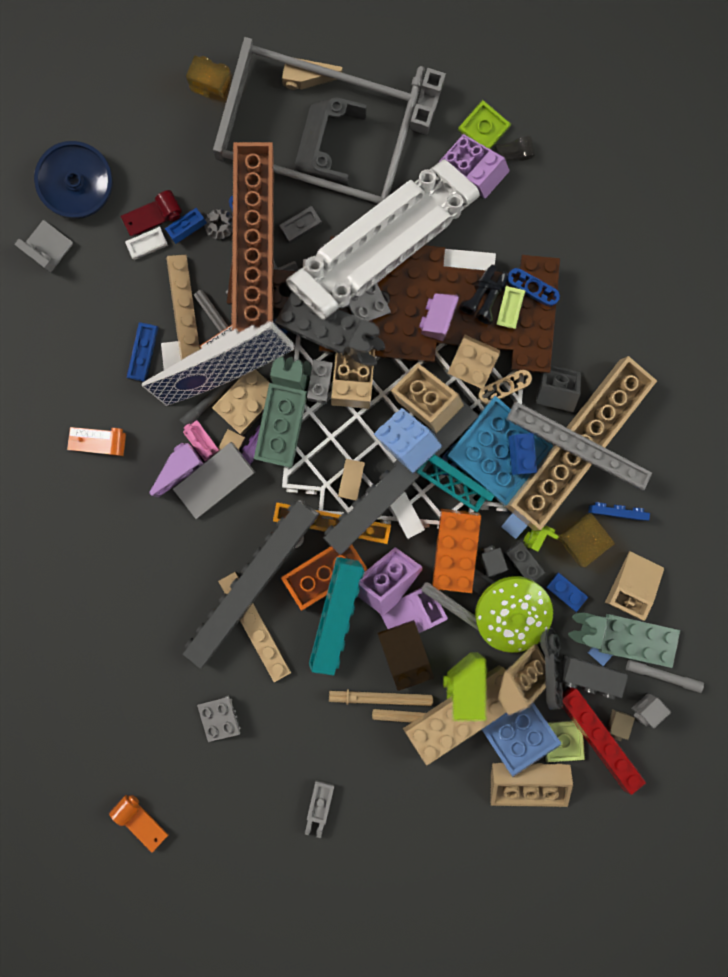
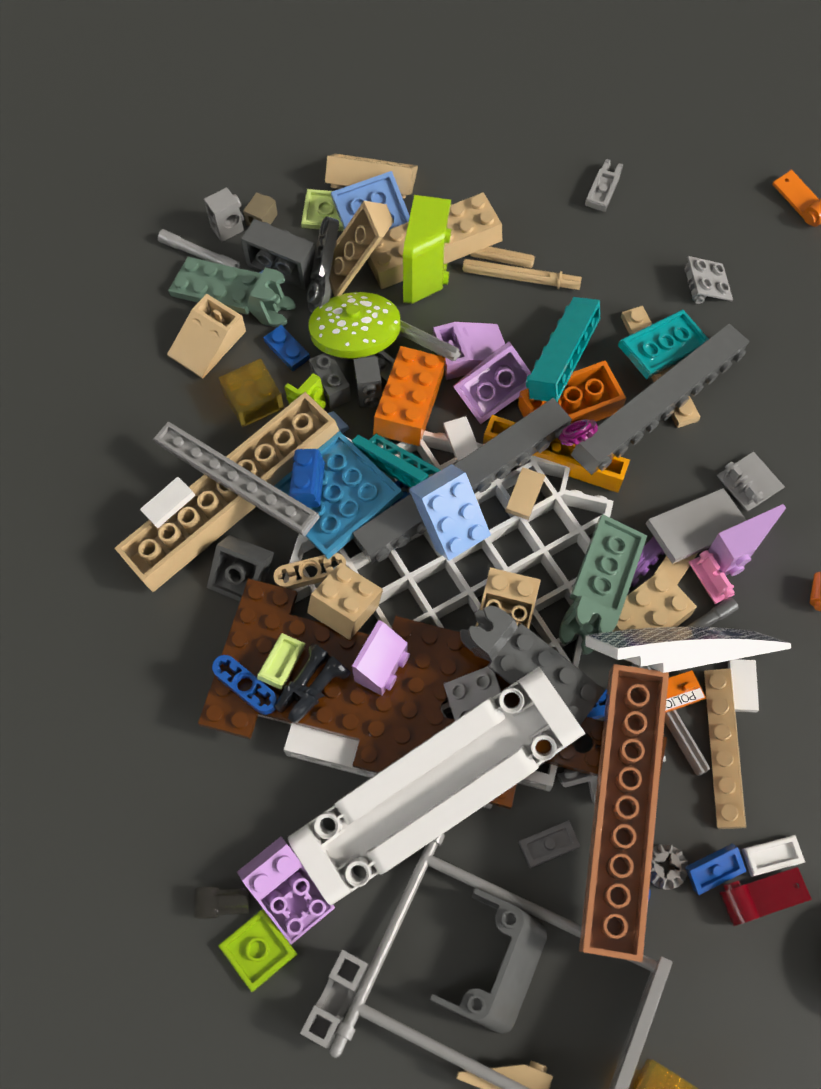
camera: 165 degrees left, 20 degrees down
(142, 352) = (783, 705): blue tile -> none
(174, 530) = (750, 481): none -> light grey hinge
(252, 642) = (663, 343): none -> teal tile
(315, 529) = (578, 432): none -> magenta gear
(320, 381) = (551, 610): light grey brick -> none
(405, 655) = (487, 300): dark brown slope -> none
(427, 397) = (415, 561): tan brick -> none
(601, 741) = (284, 193): red brick -> none
(619, 511) = (204, 417): blue plate -> none
(626, 420) = (167, 502): none -> white tile

